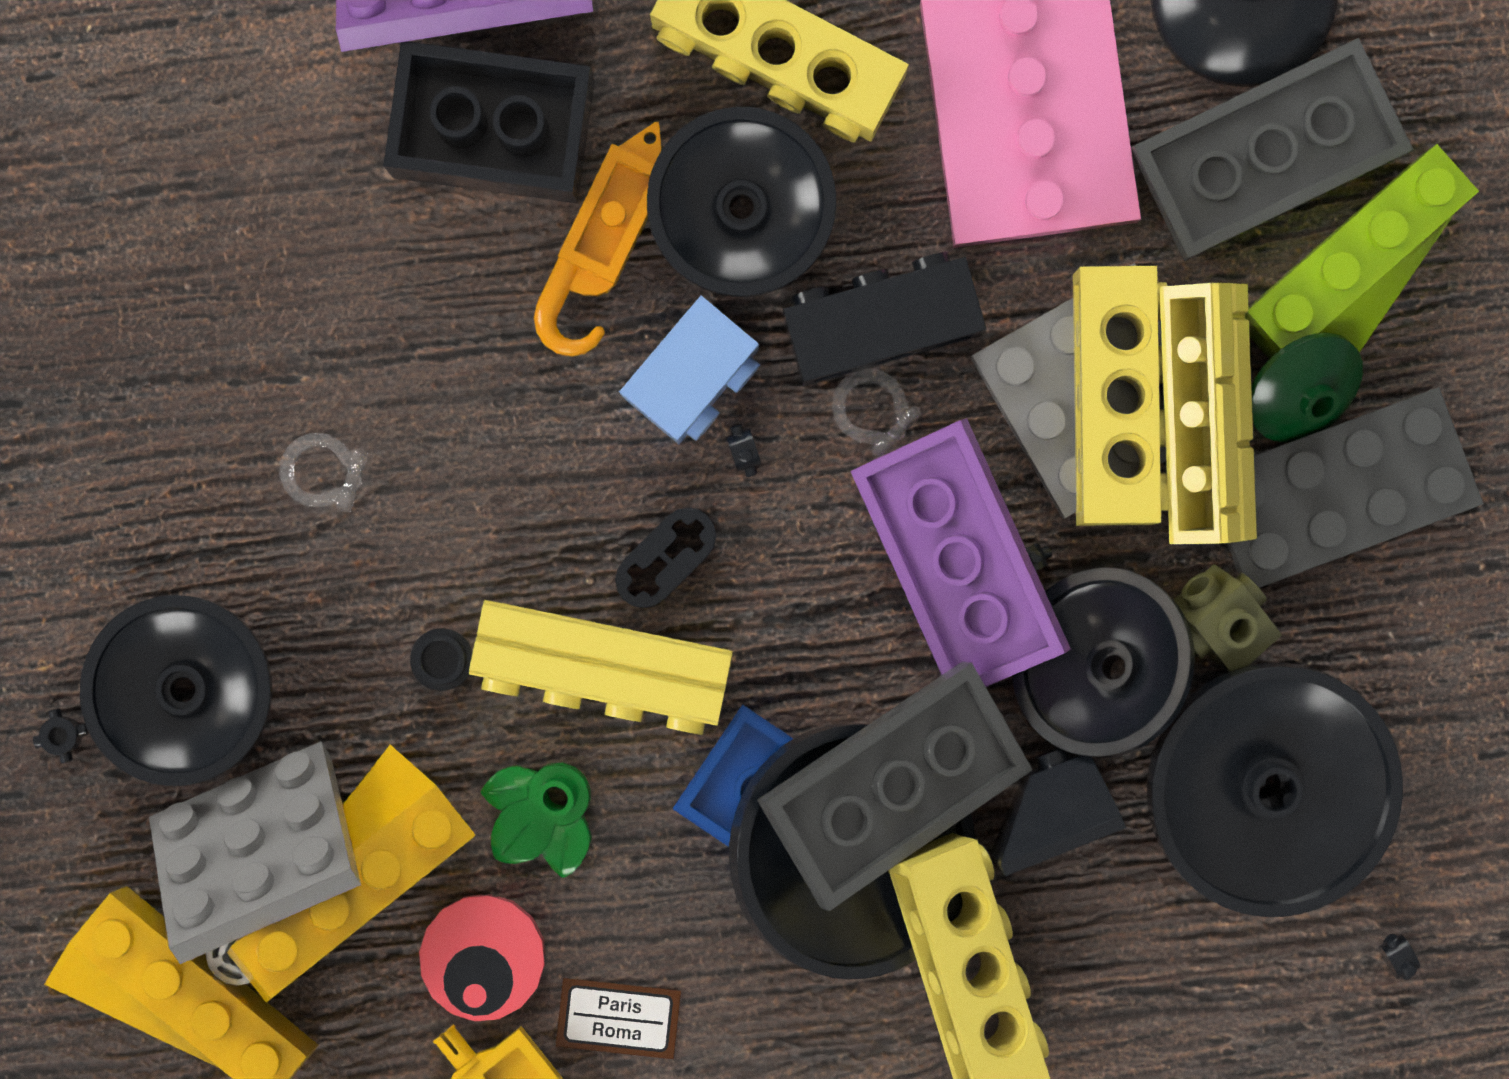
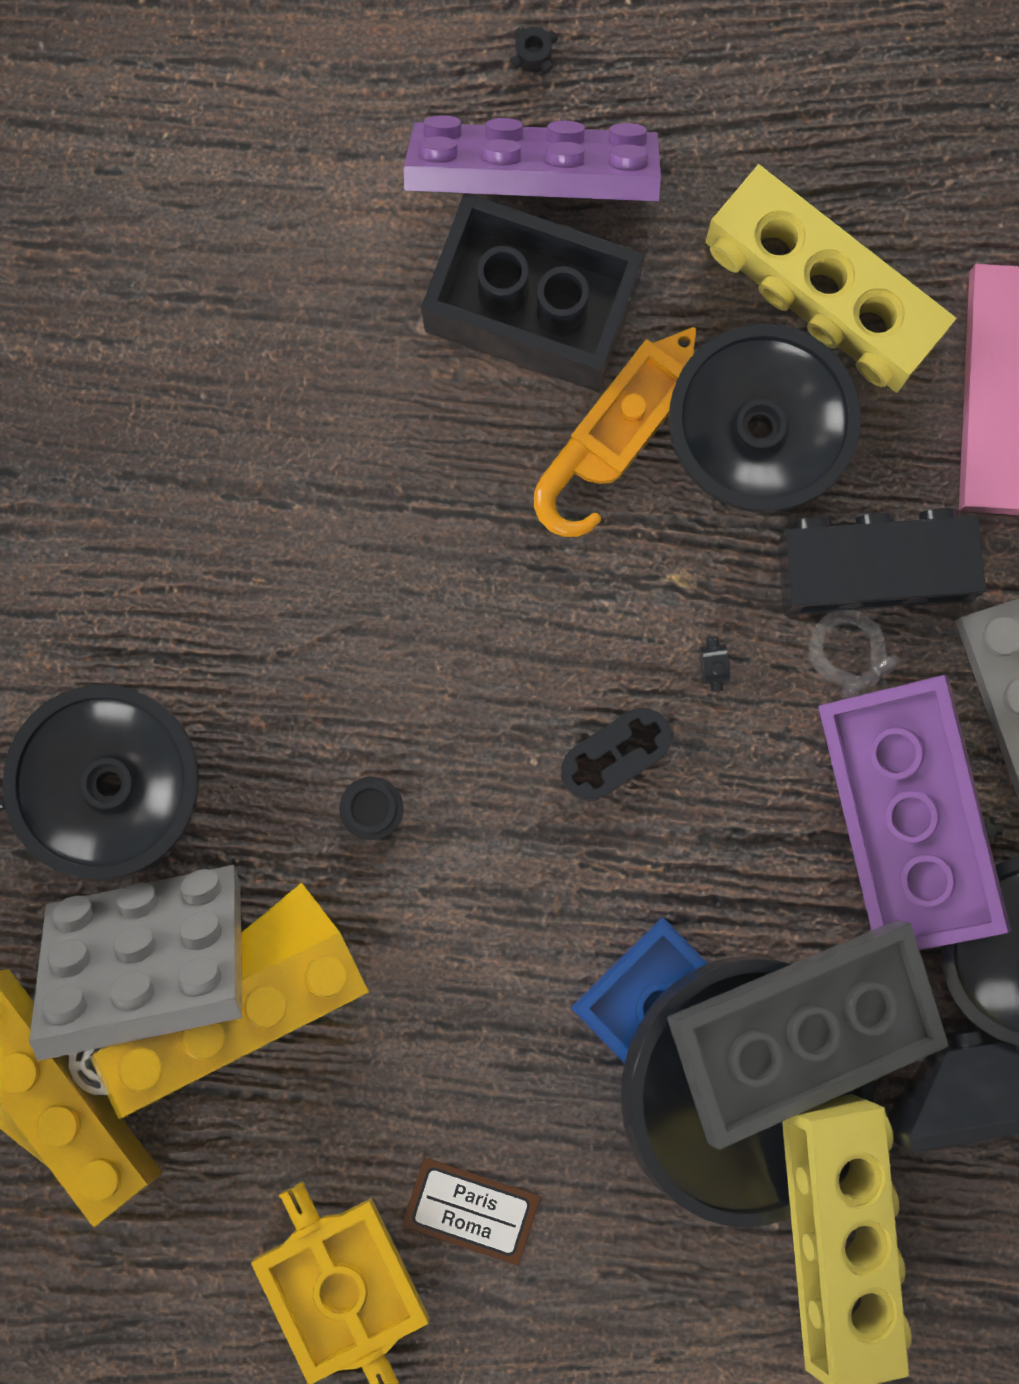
camera: 15 degrees right, 5 degrees down
(341, 496) = (307, 627): clear piece -> none
(482, 957) = (347, 1119): coral tile -> none
(535, 824) = (427, 991): green plate -> none
(601, 664) = (531, 845): light yellow brick -> none
(692, 371) = (680, 574): light blue brick -> none

